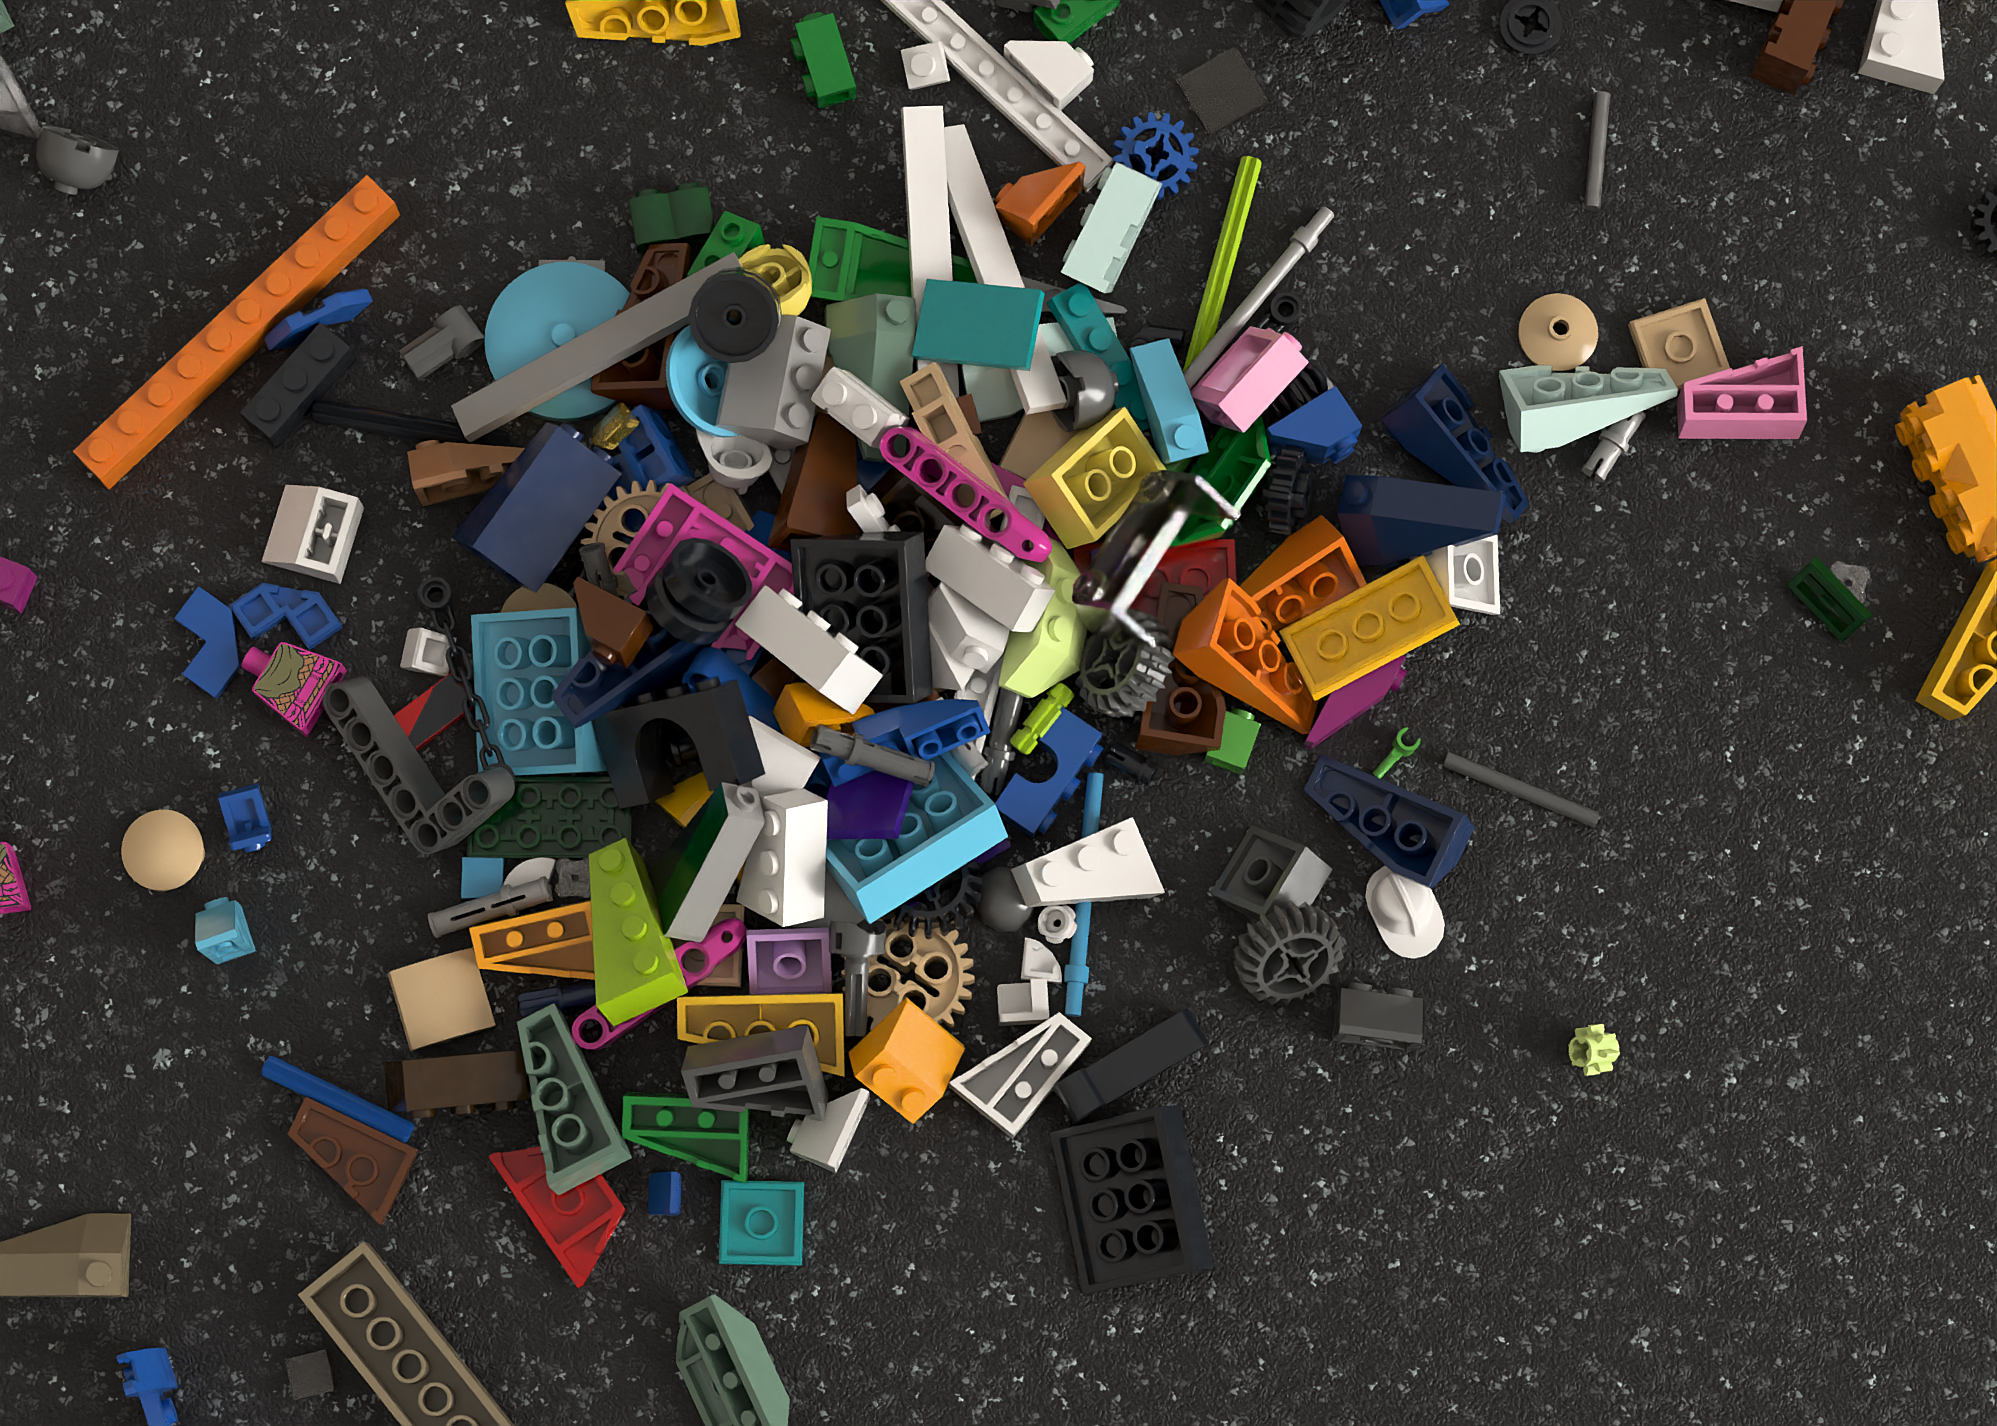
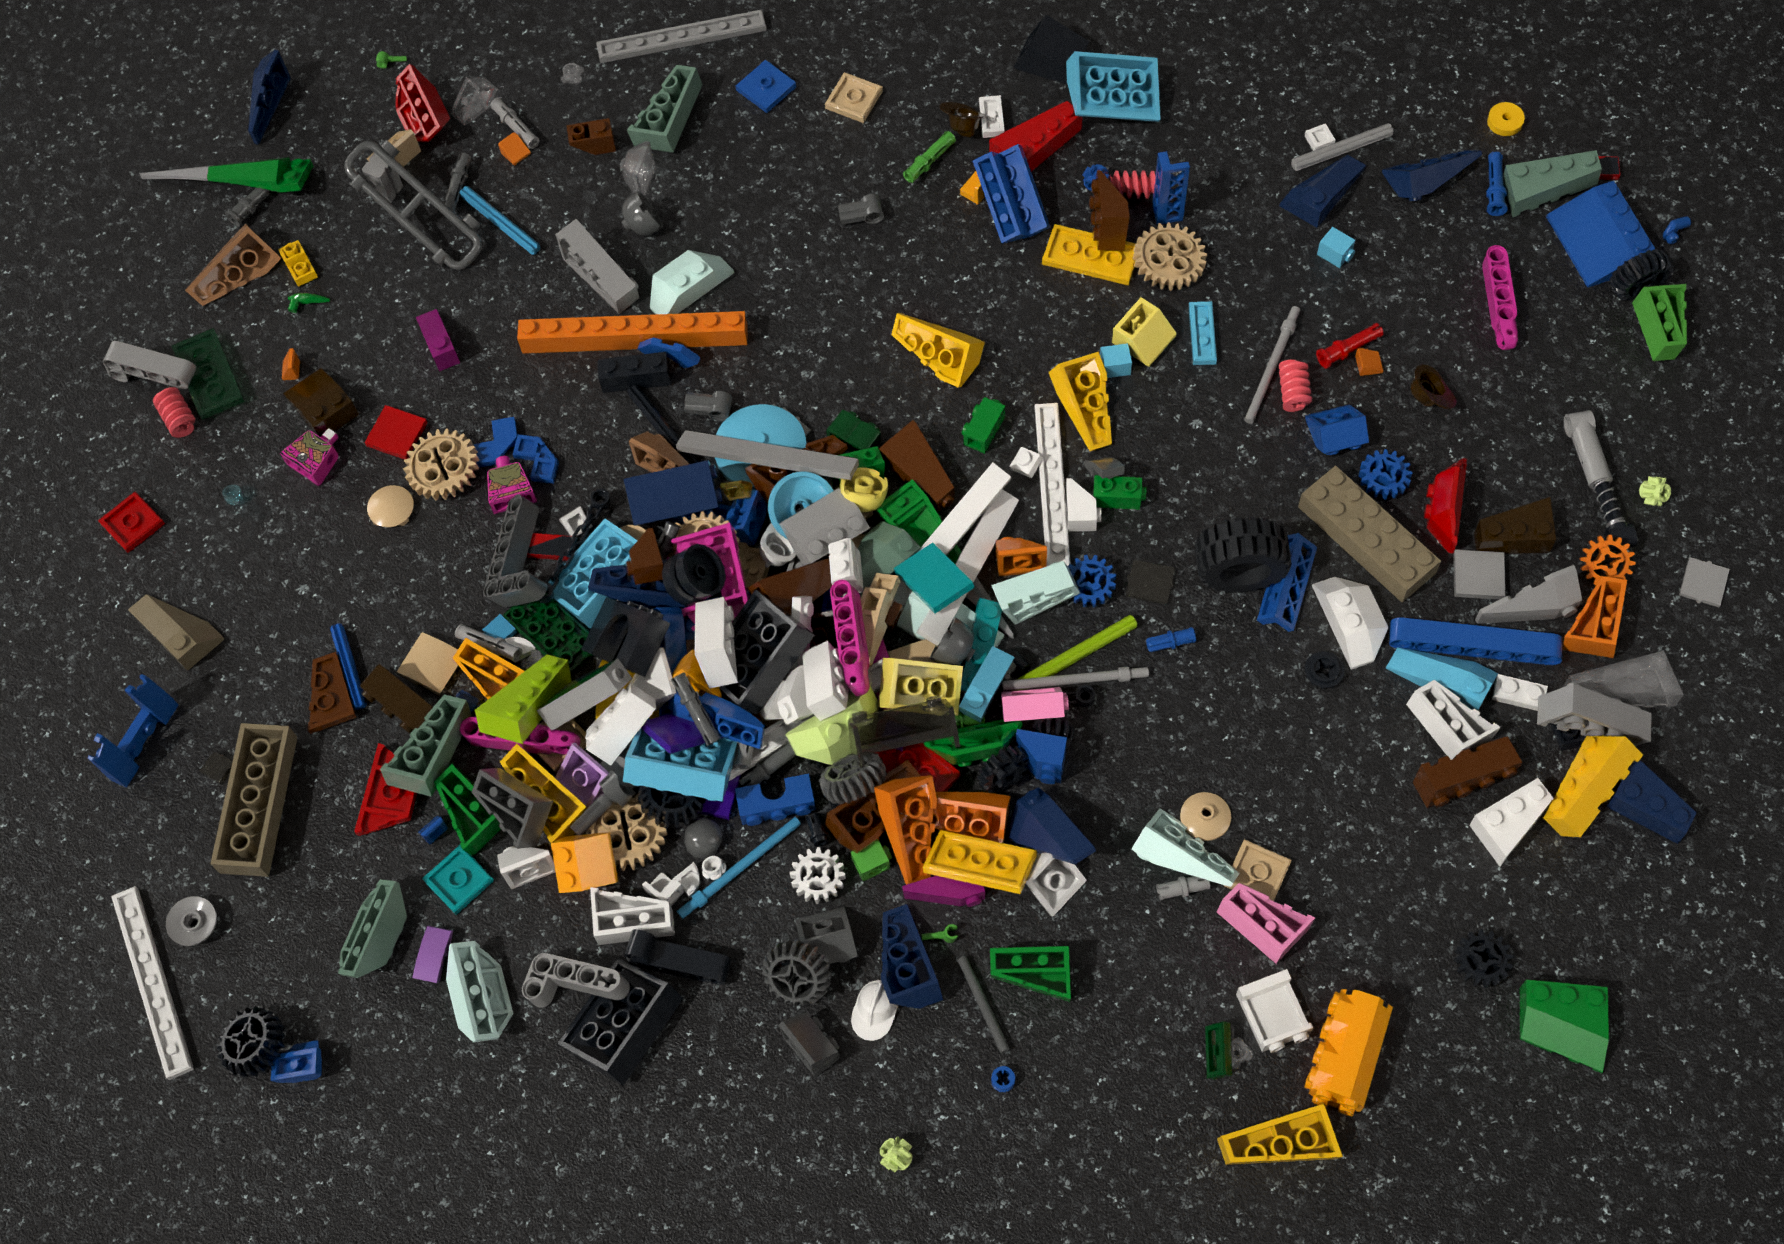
camera: 55 degrees right, 15 degrees down
(59, 747) = (395, 432): none -> red tile
(95, 284) = (596, 266): none -> light grey wedge
(159, 768) = (420, 473): none -> tan gear
(222, 931) = (372, 555): medium azure slope -> none
(229, 199) = (686, 281): none -> light aqua wedge
(246, 818) = (433, 521): blue bracket -> none
(314, 531) = (580, 435): white slope -> none
(745, 292) = (828, 478): black wheel -> none
(793, 189) = (912, 458): none -> reddish brown slope
(829, 1335) = (432, 954): none -> medium lavender slope
(937, 1329) = (477, 992): none -> light aqua wedge
(1042, 718) = (794, 770): lime axle -> none
(1042, 1202) = (577, 980): none -> light grey beam
(1095, 868) = (748, 854): white wedge -> none
(1208, 817) = (810, 882): none -> white gear
(1319, 145) = (1171, 640): none -> blue axle
(1441, 432) = (1105, 812): dark blue wedge -> none
(1545, 694) = (1034, 968): none -> green wedge
(1597, 150) = (1303, 751): flat silver bar -> none
(1616, 863) = (1011, 1079): none -> blue bush
(1848, 498) = (1274, 1012): none -> white panel

